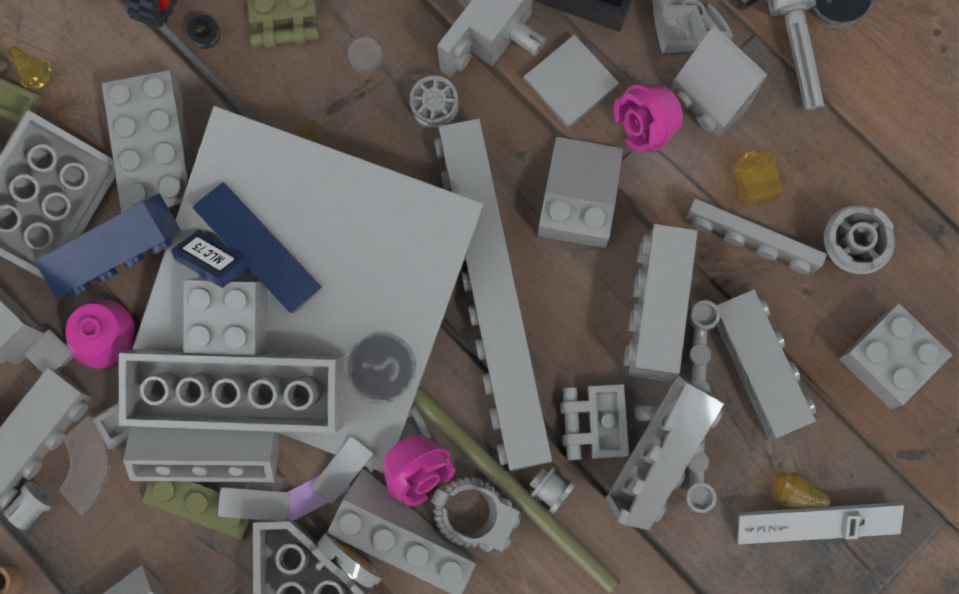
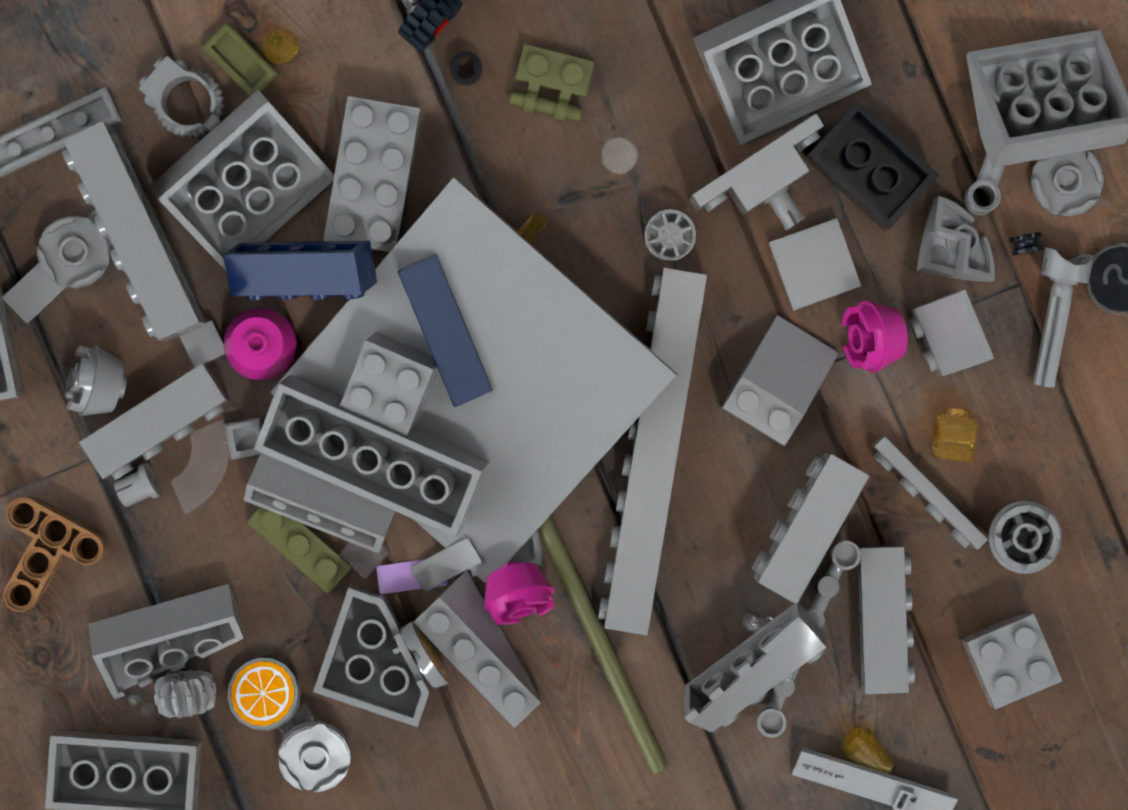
camera: 15 degrees right, 10 degrees up
(210, 258) = (397, 327): tile -> none
(253, 504) = (352, 566): light grey sticker -> none
(380, 367) = (519, 486): clear tile -> none
(500, 521) = (570, 676): light grey piece -> none
(551, 488) = (637, 658): light grey brick -> none
(606, 418) = (713, 616): light grey plate -> none

